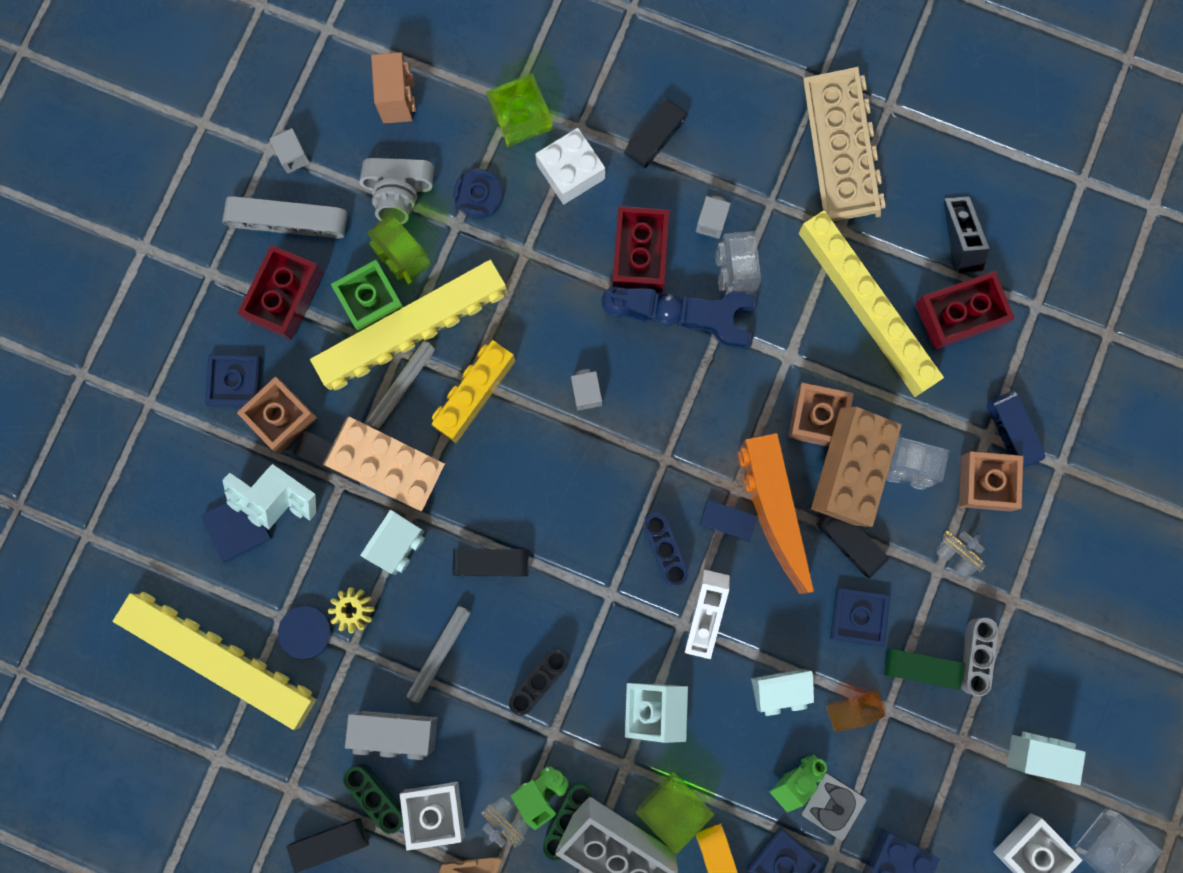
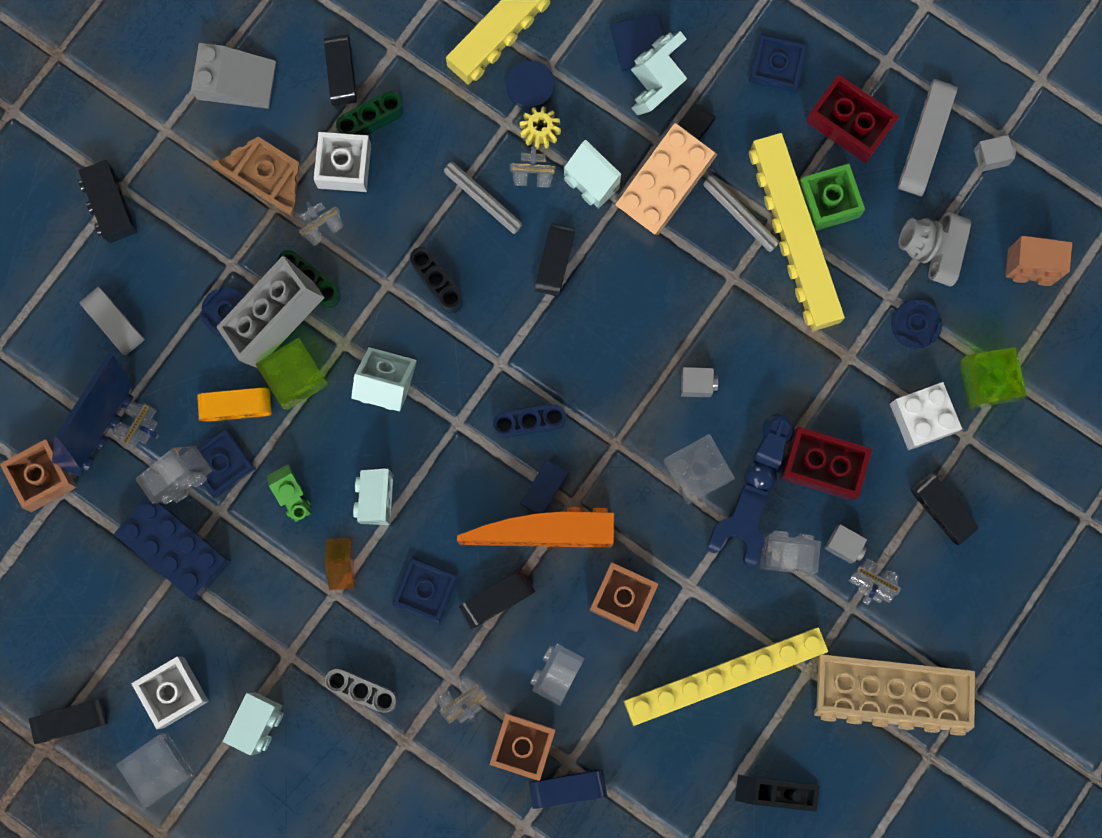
camera: 100 degrees right, 0 degrees up
(277, 415) = (734, 94): nougat brick -> none
(391, 734) = (421, 140): light grey brick -> none
(398, 595) = (521, 171): none -> clear hips
(399, 248) = (872, 233): clear neon green brick -> none
(474, 391) = (719, 277): yellow brick -> none
(534, 797) = (335, 253): bright green brick -> none
(676, 369) = (698, 469): none -> clear brick
(707, 613) = (462, 446): white slope -> none
(748, 183) = (874, 586): none -> clear hips
(834, 807) = (260, 522): sticker -> none
(856, 466) = (564, 612): medium nougat brick -> none
(924, 669) = (362, 636): dark green beam -> none
(964, 310) = (697, 768): dark red brick -> none

